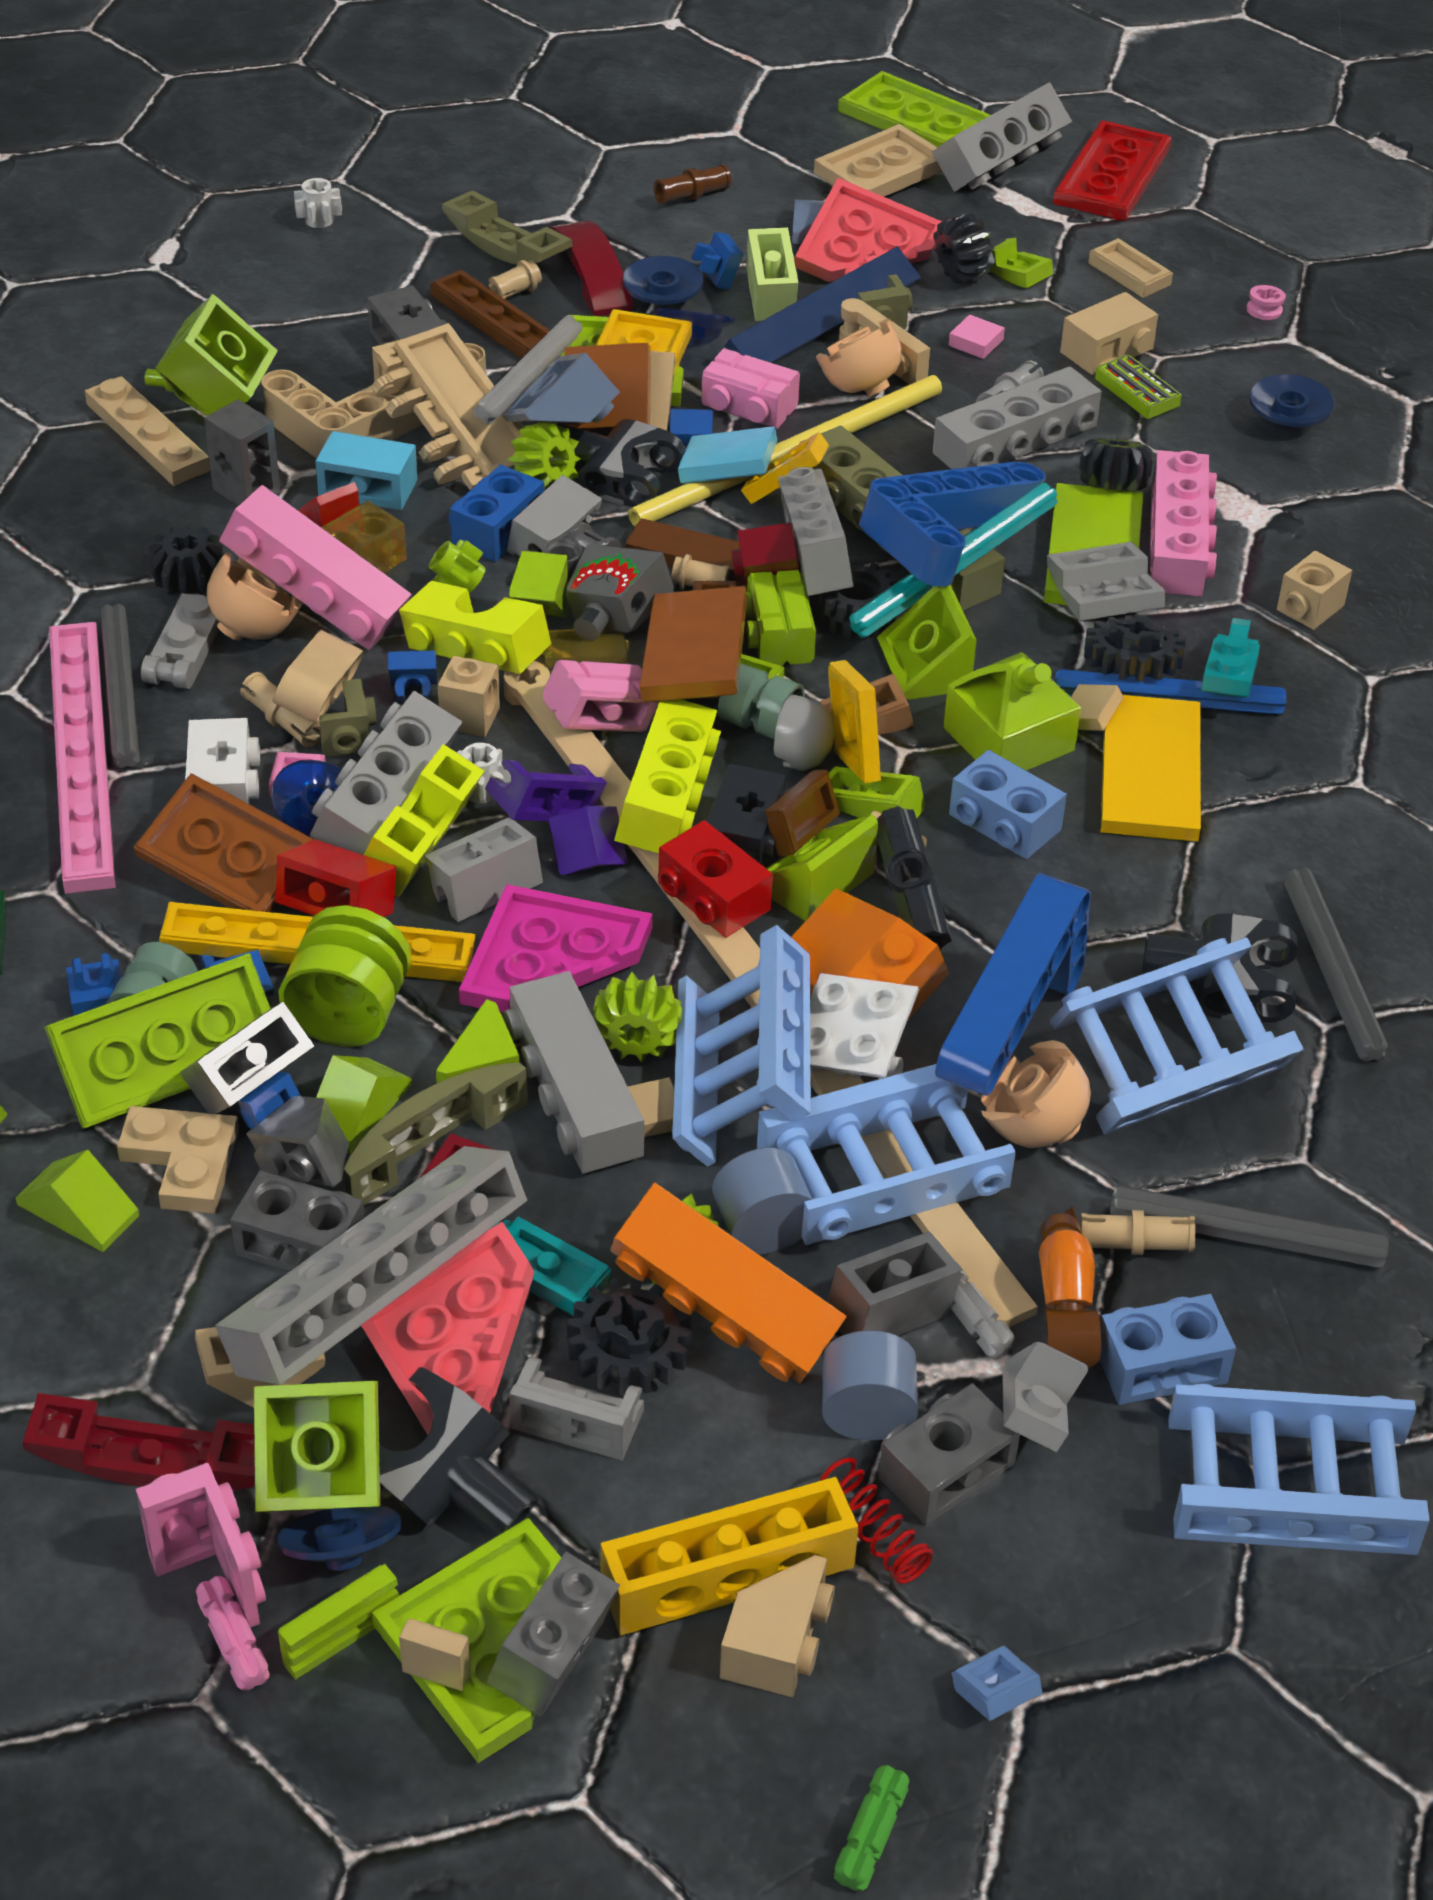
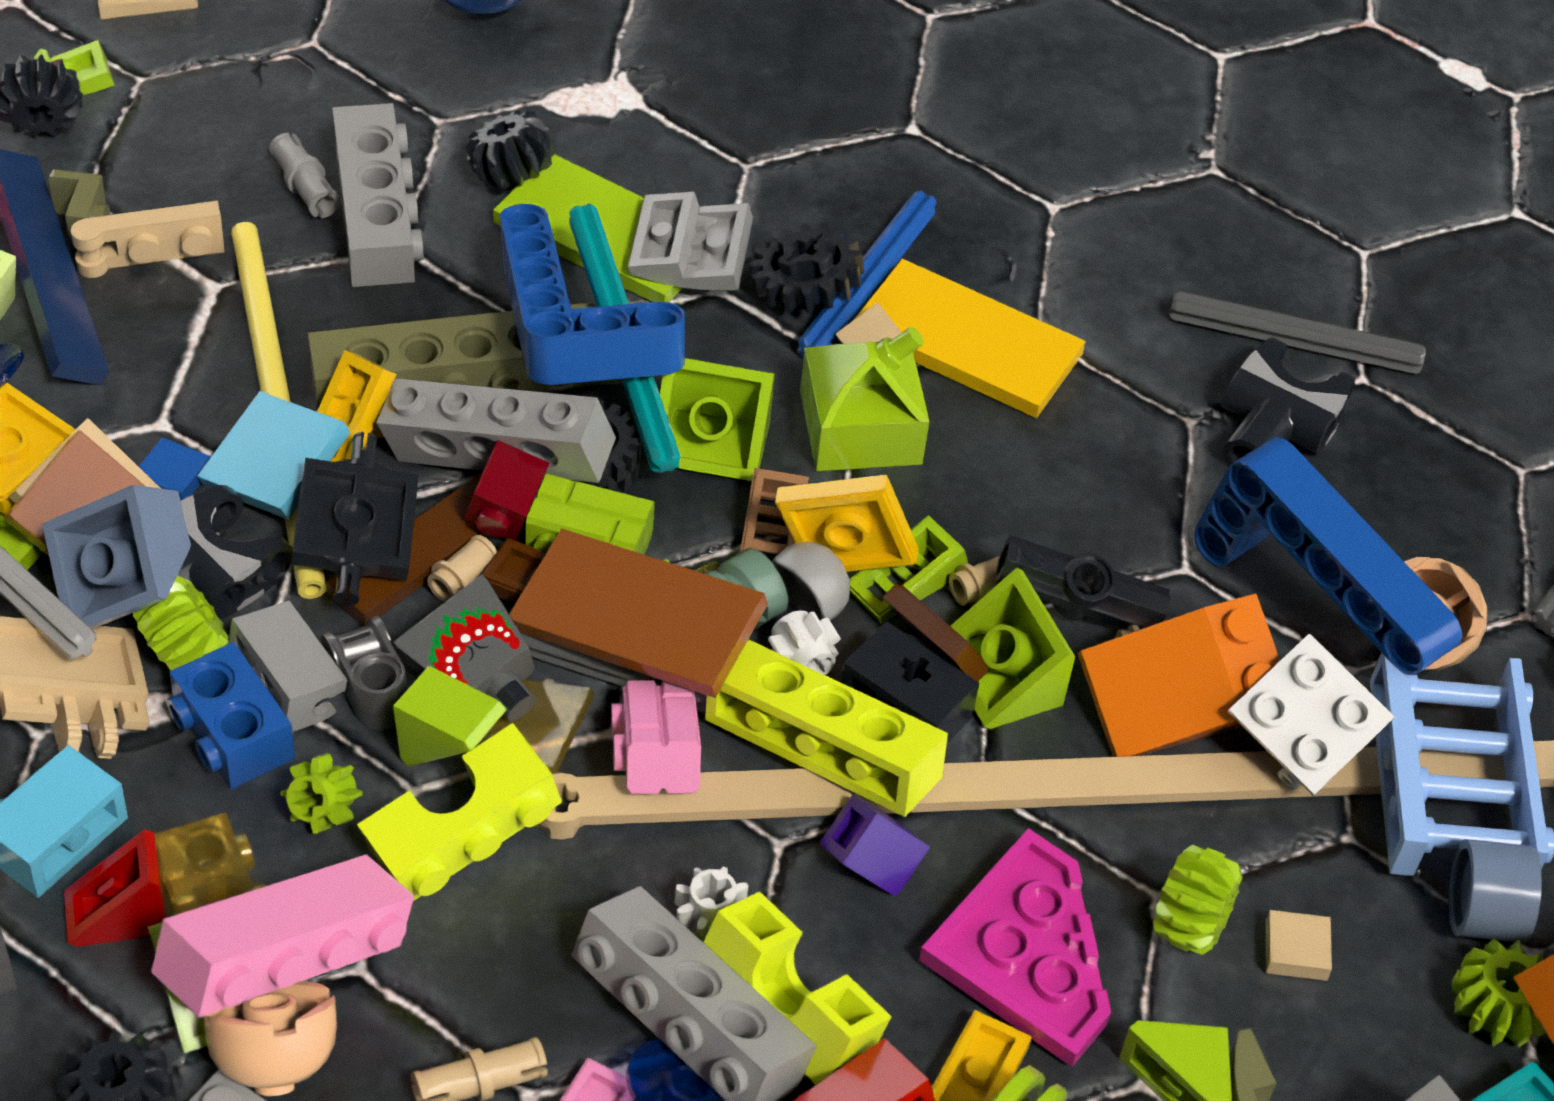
camera: 70 degrees left, 5 degrees up
(317, 676) = (472, 1008): tan beam -> none
(346, 731) = (547, 999): olive bracket -> none
(412, 668) = (485, 911): blue tile -> none
(470, 694) = (574, 867): tan brick -> none
(479, 866) = (880, 952): light grey hinge -> none
(544, 795) = (802, 854): dark purple hinge -> none
(574, 1073) = (1255, 983): light grey brick -> none
(688, 498) = (355, 519): none -> black plate
(714, 879) = (1017, 748): red brick -> none
(744, 746) = (806, 640): none -> white gear
(750, 388) = (151, 387): bright pink brick -> none
(780, 1051) = (1340, 785): light blue fence -> none
(863, 360) = (182, 262): light nougat cylinder -> none
(976, 336) = (179, 161): bright pink tile -> none
(1007, 804) = (988, 466): medium blue brick -> none
(1108, 332) = (269, 56): tan brick -> none
(1138, 386) = (361, 79): tile -> none
(1173, 1084) = (1417, 456): light blue fence -> none
(1182, 522) = (626, 144): bright pink brick -> none
(1232, 661) = (865, 206): teal hinge -> none
(1314, 589) = (786, 103): tan brick -> none

